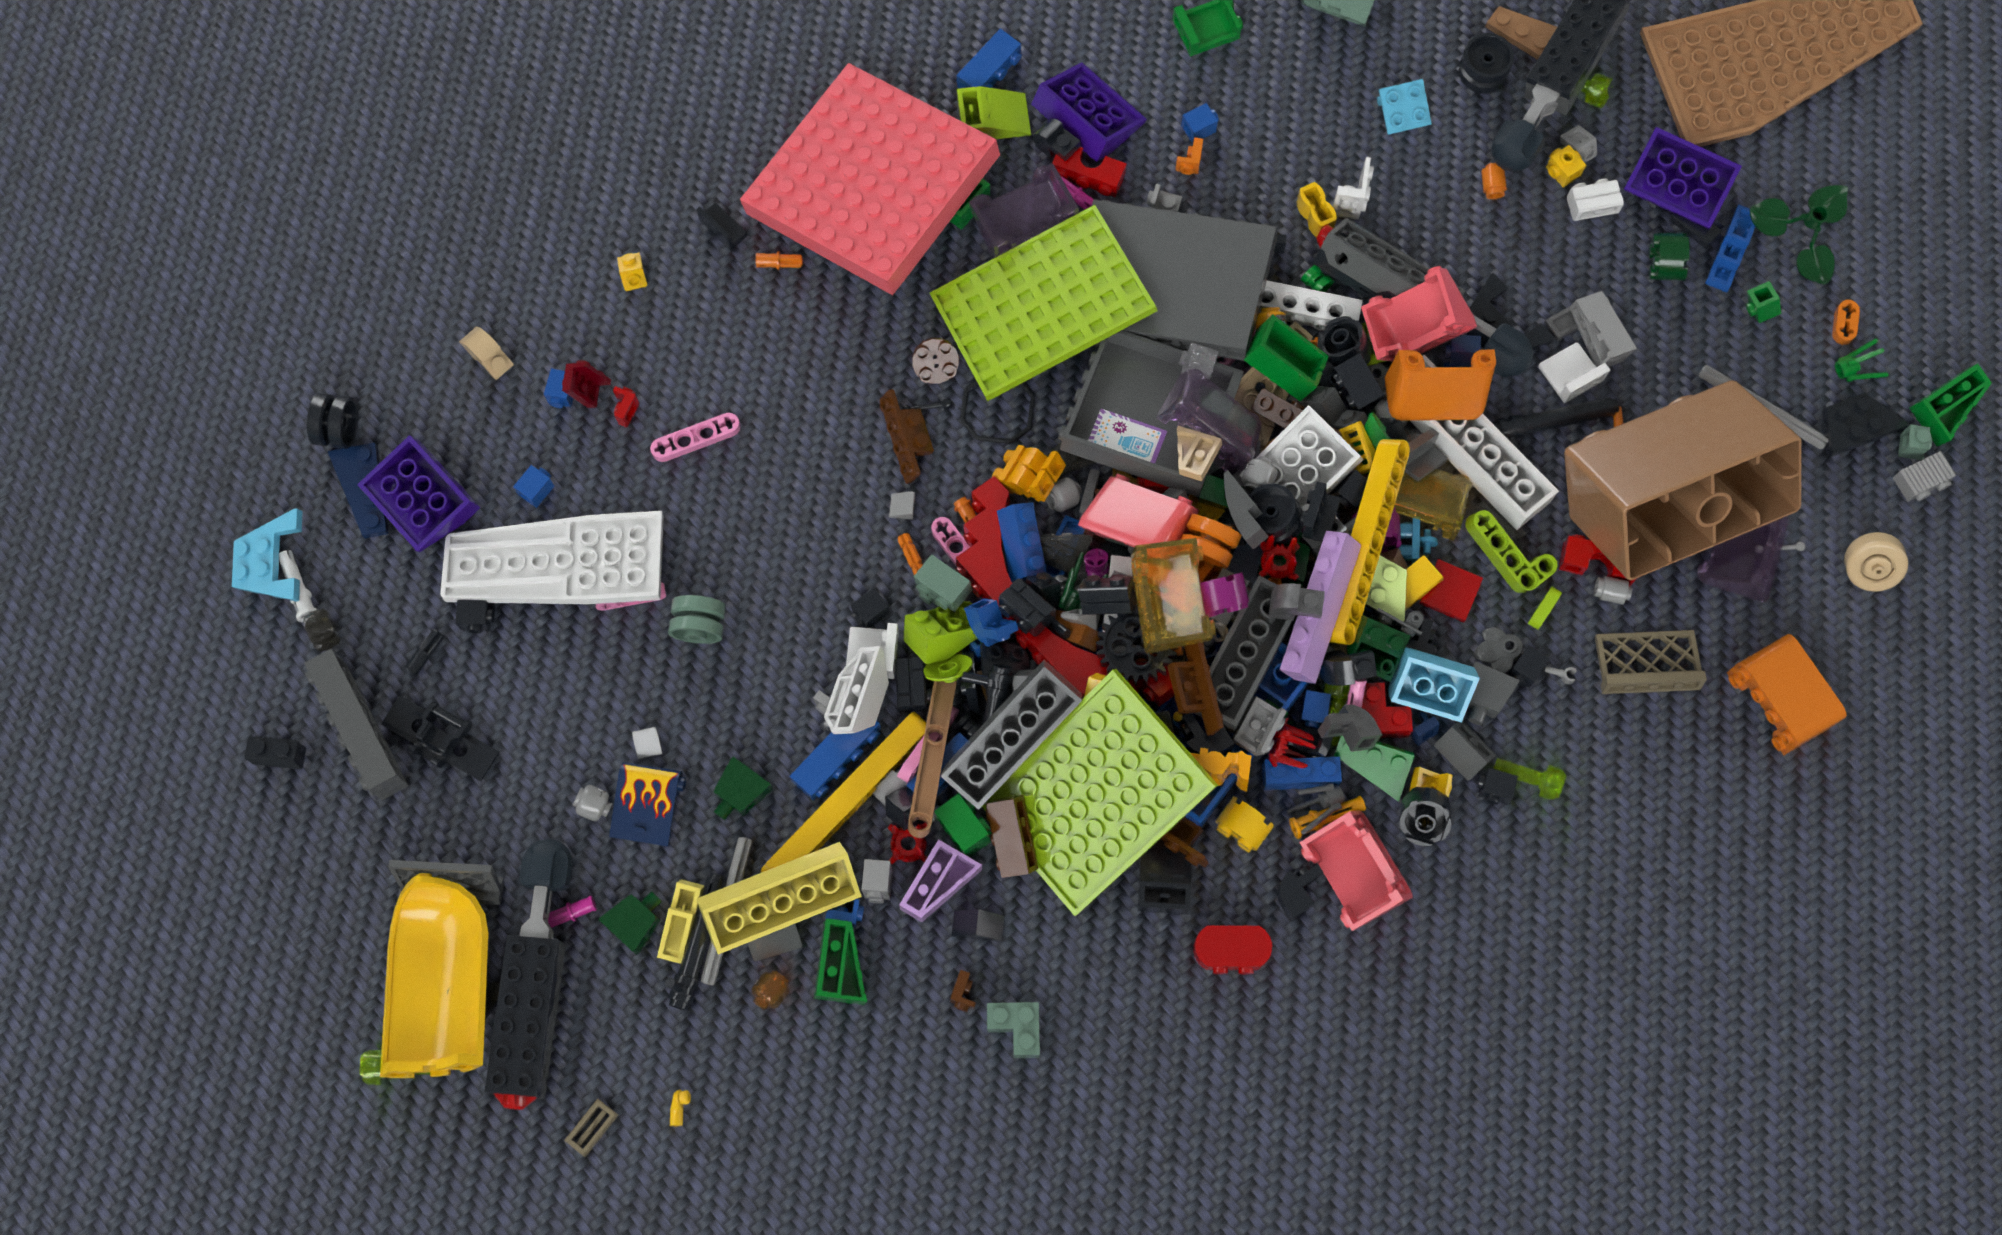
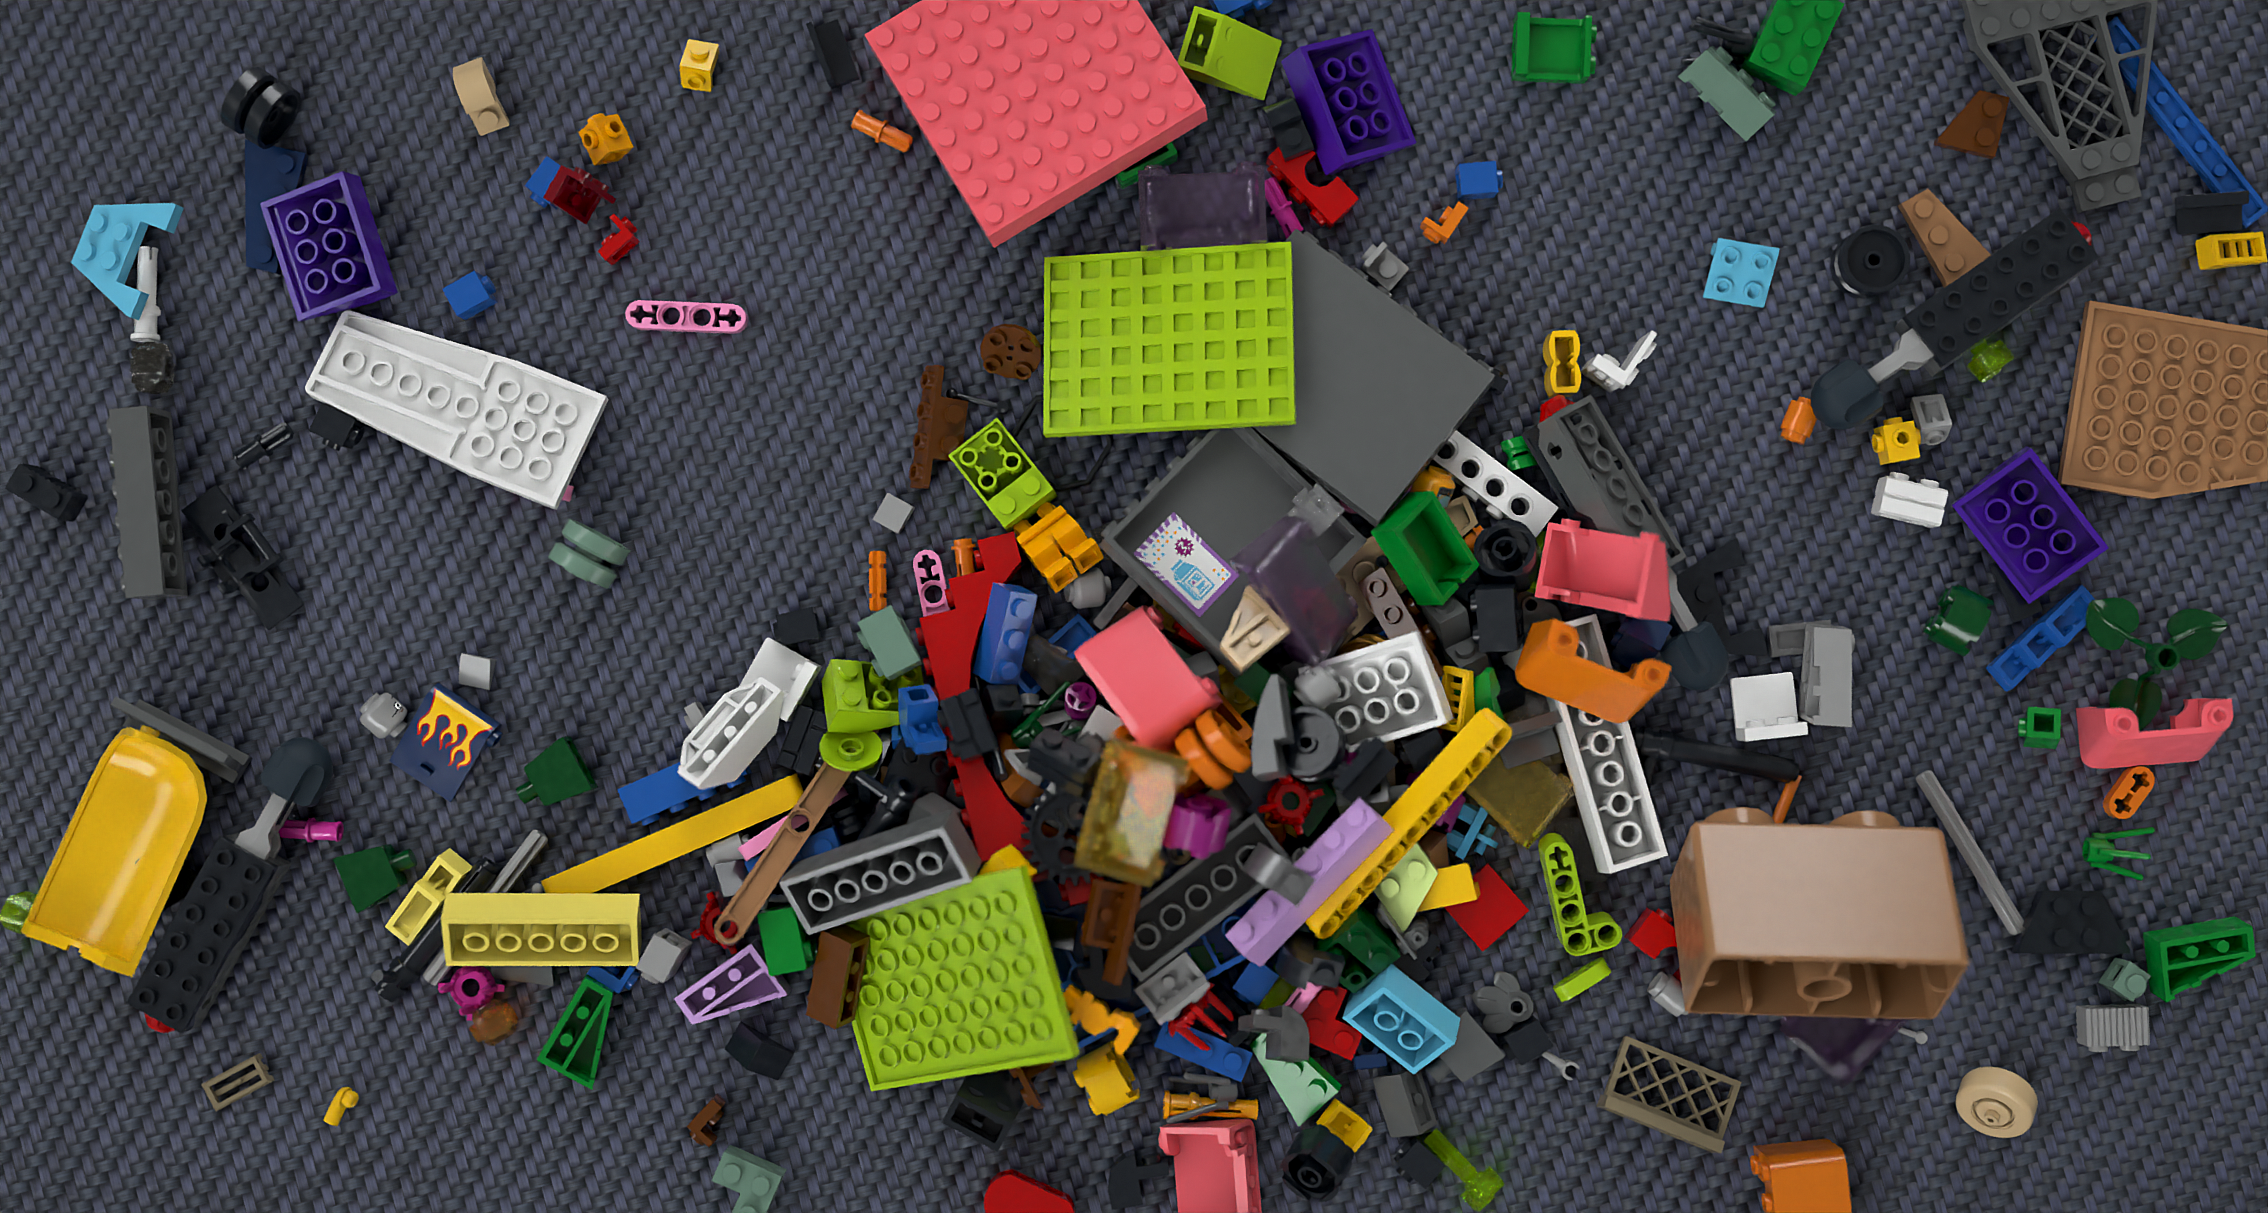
camera: 20 degrees right, 15 degrees up
(587, 342) = (605, 138): none -> light orange brick
(741, 986) = (471, 1003): none -> dark pink piece
(968, 444) = (1002, 475): none -> lime slope
(1820, 288) = (2113, 737): none -> coral windscreen

